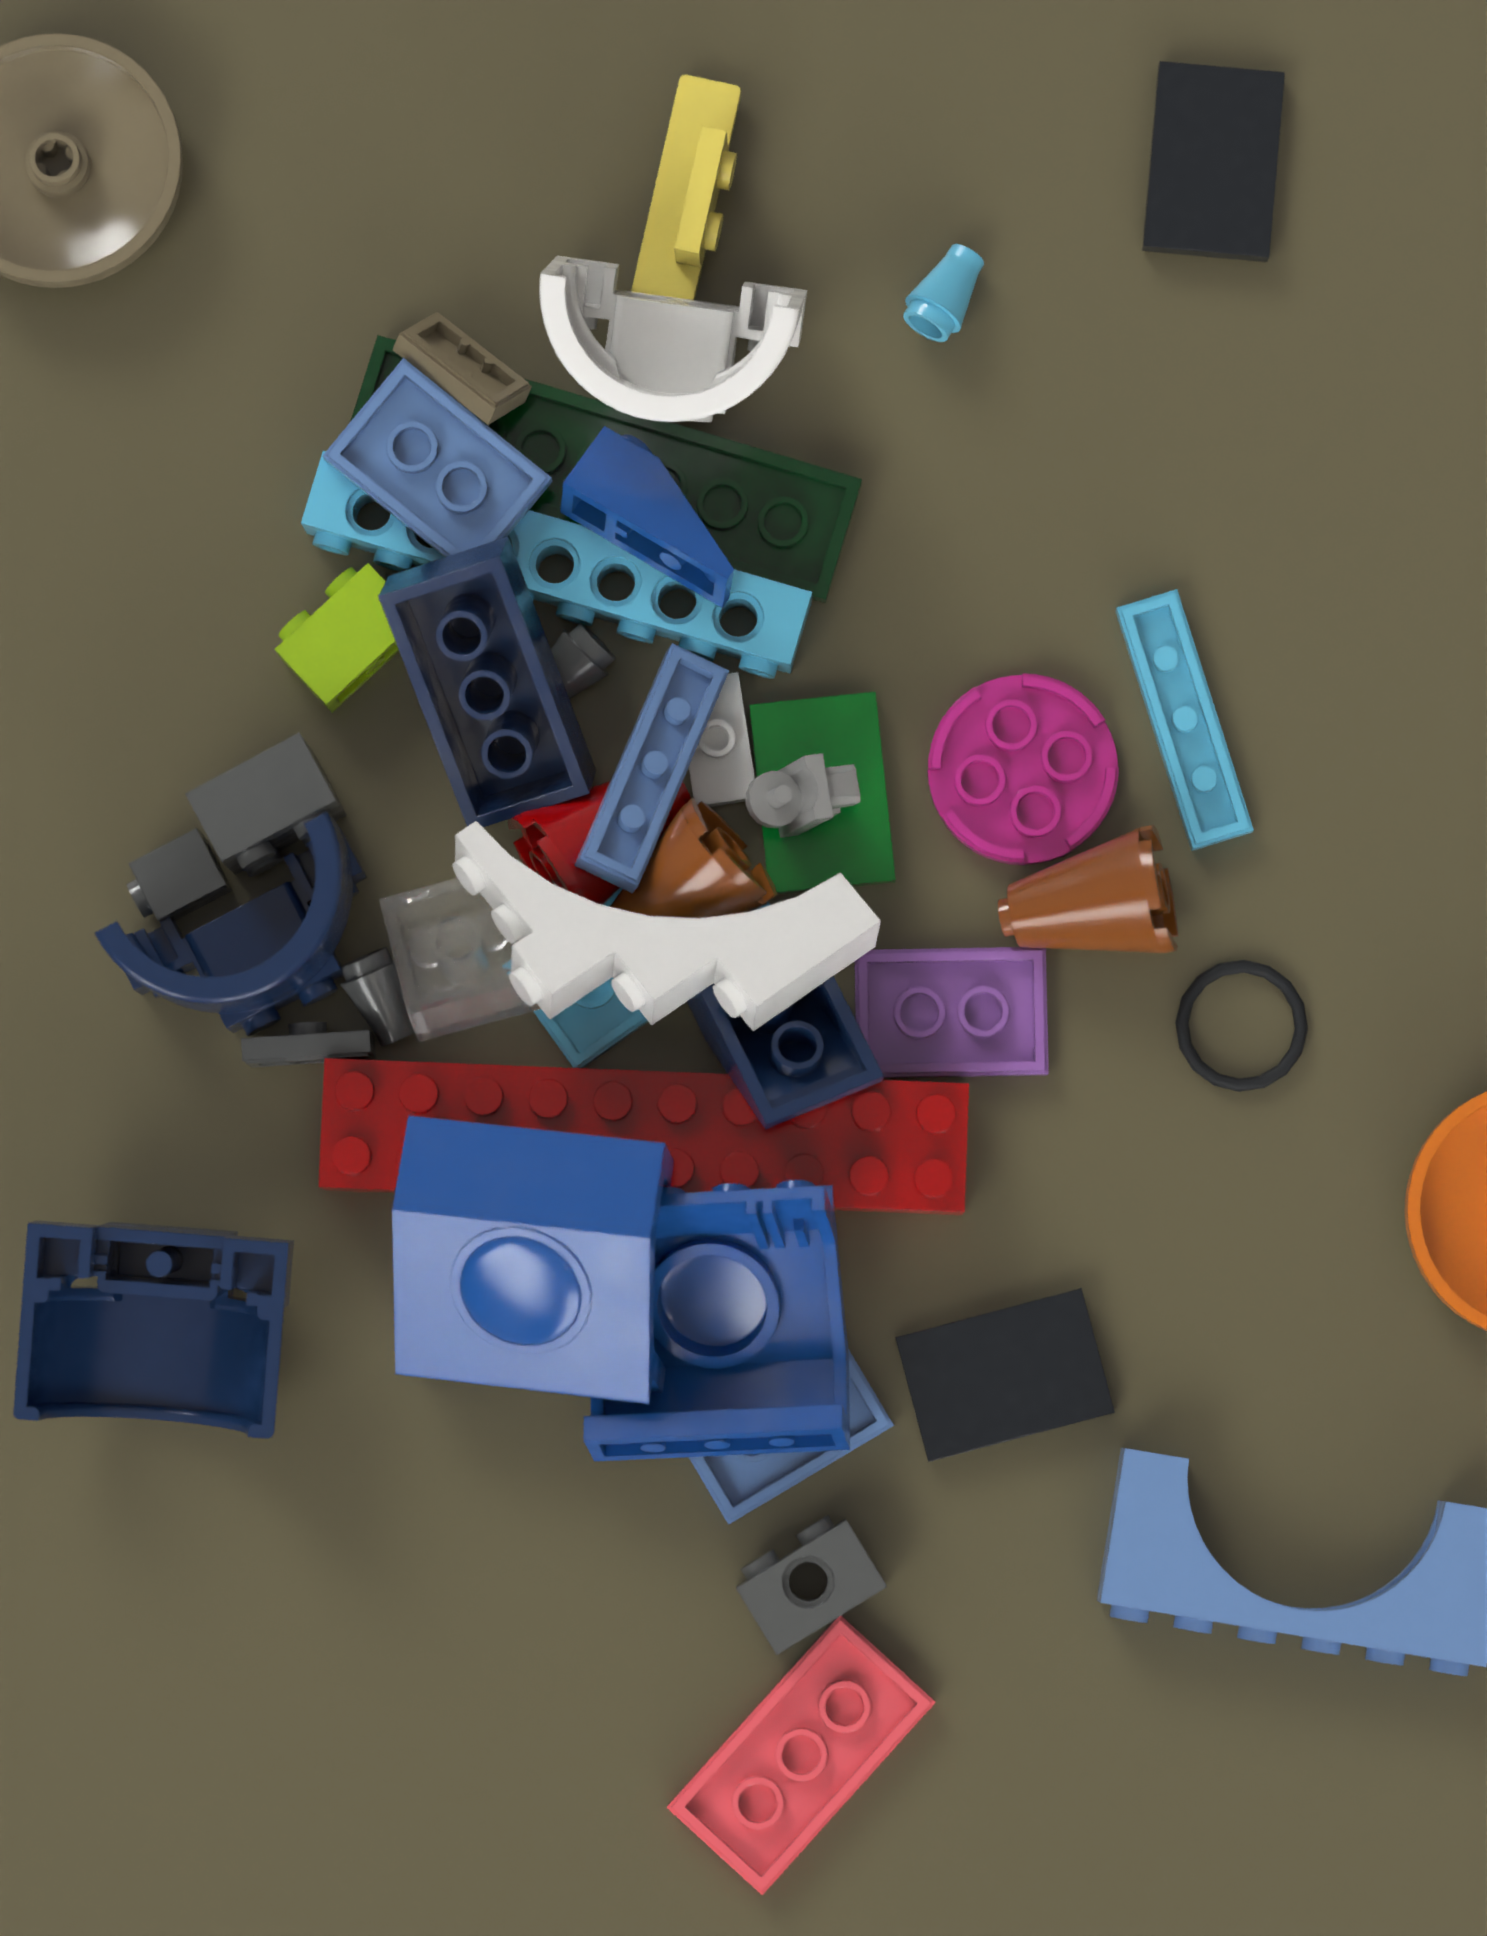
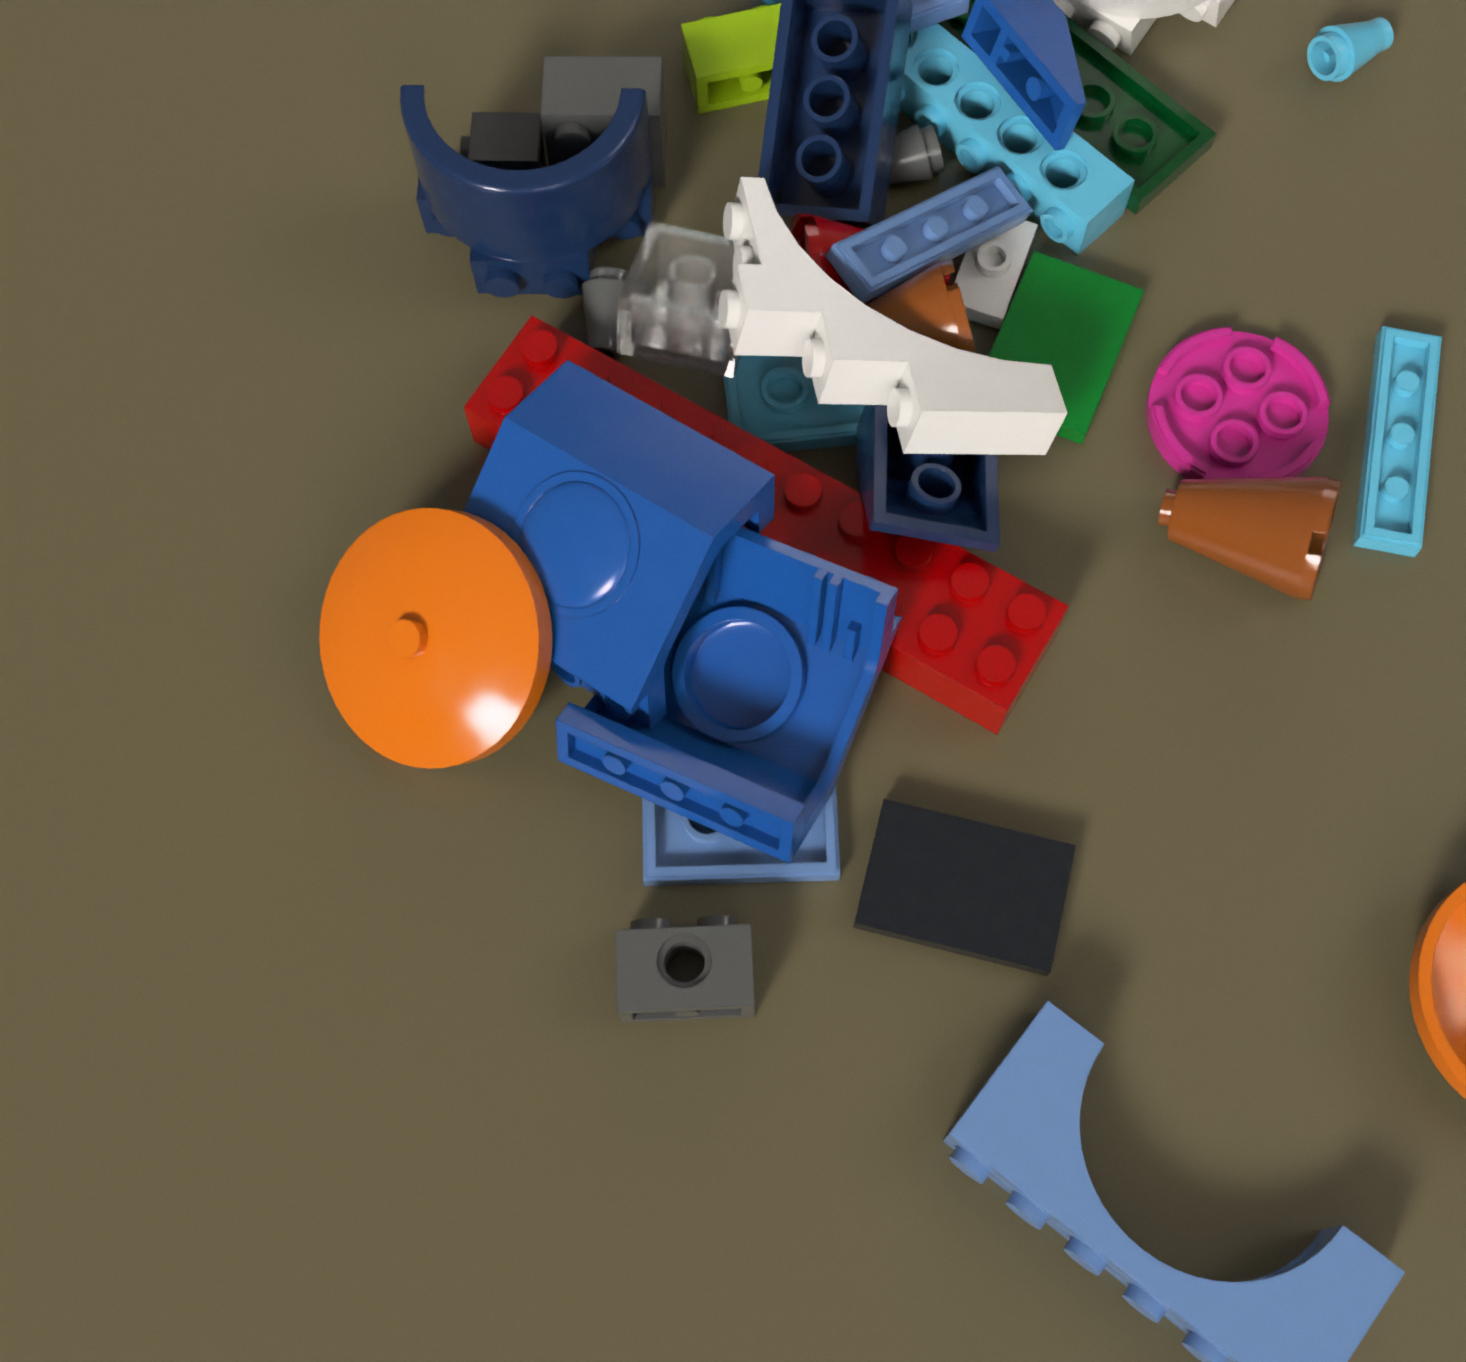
camera: 25 degrees right, 15 degrees down
(156, 1329) = (255, 468): dark blue piece -> none
(307, 1045) = (508, 309): dark grey plate -> none
(429, 1422) = (435, 637): none -> orange dish
(801, 795) = (1048, 312): light grey hips -> none
(801, 1754) = (587, 1128): coral tile -> none
(954, 1011) = (1088, 559): medium lavender tile -> none
(1206, 1071) = (1315, 755): black piece -> none

